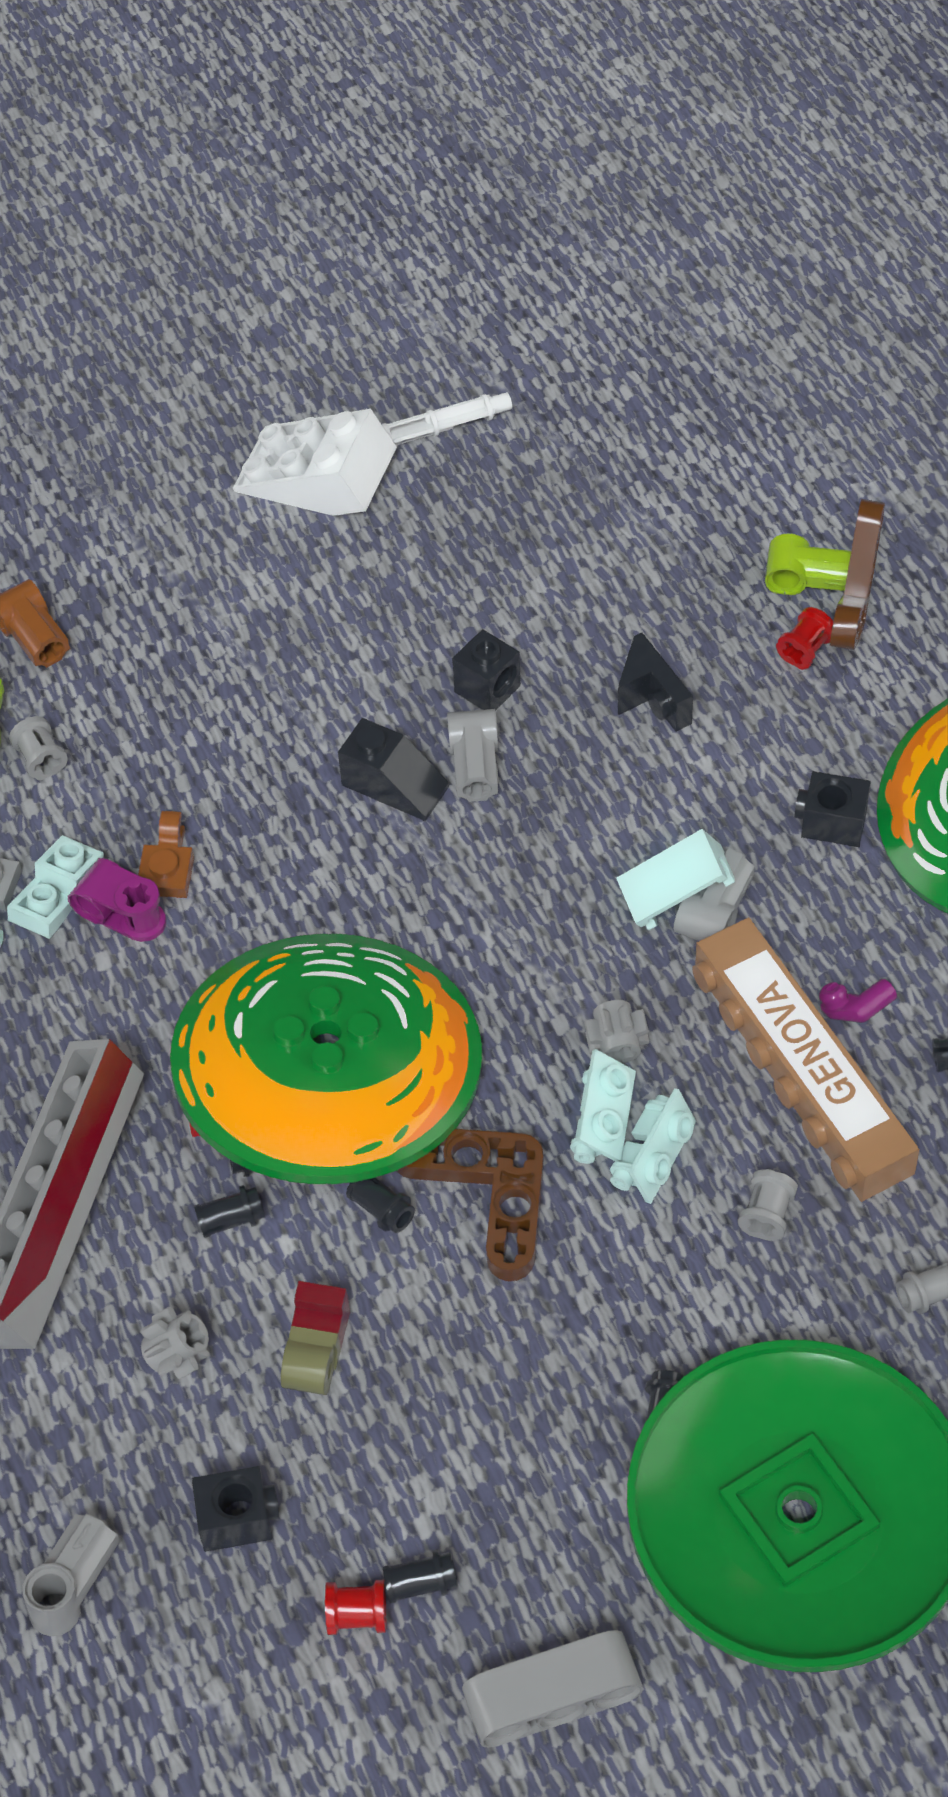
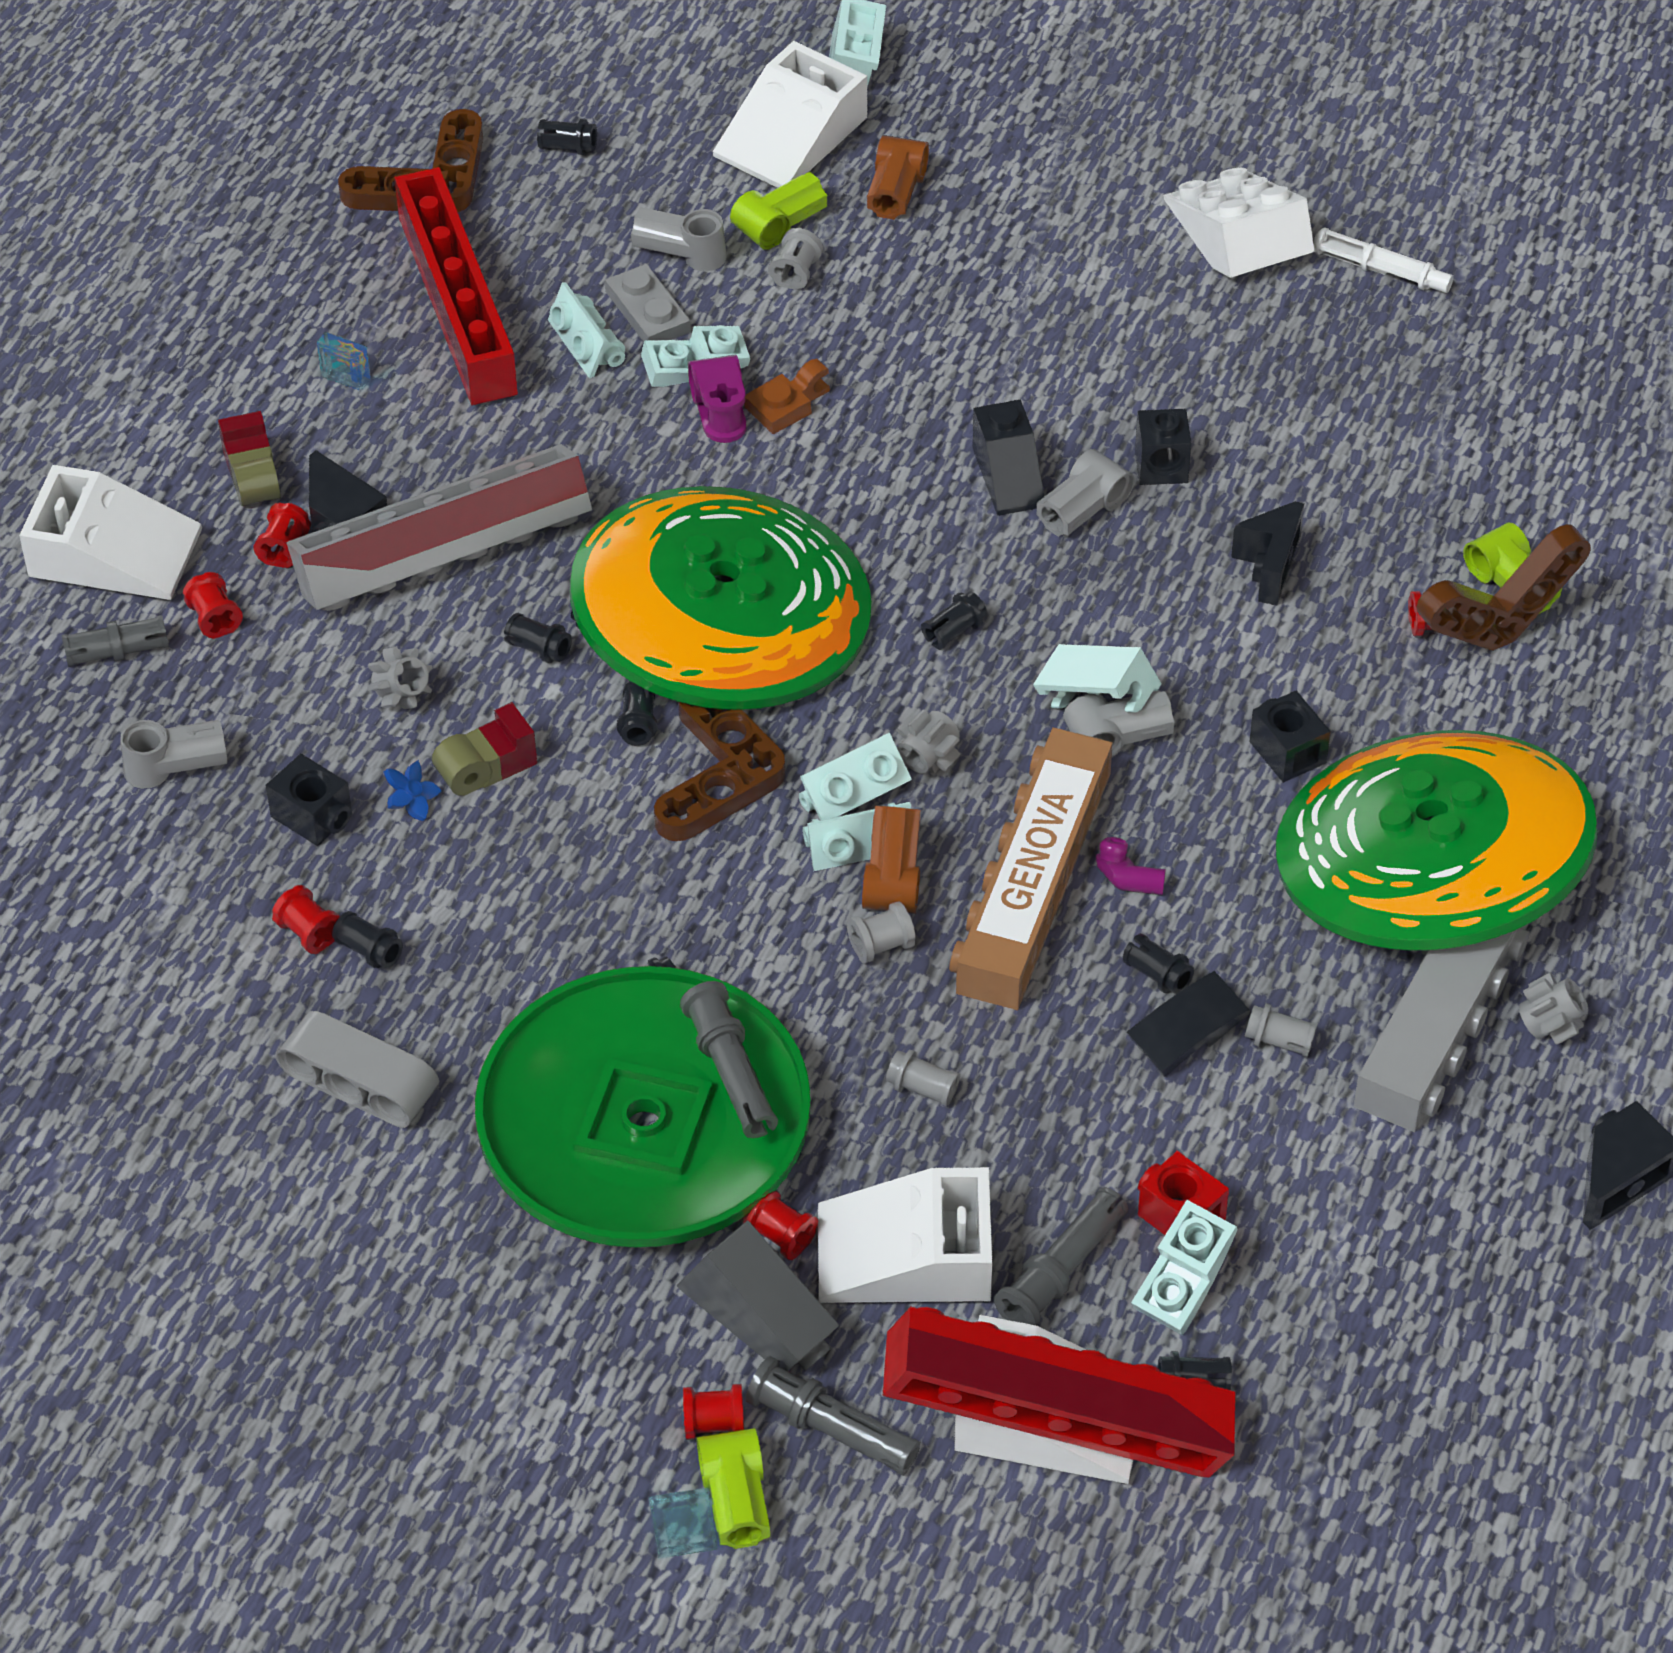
camera: 45 degrees right, 5 degrees down
(295, 1426) = (411, 791): none -> blue plant
(508, 914) = (955, 619): none -> black pin
(723, 1153) = (893, 861): none -> dark orange piece
(806, 1395) = (722, 1040): none -> dark grey pin

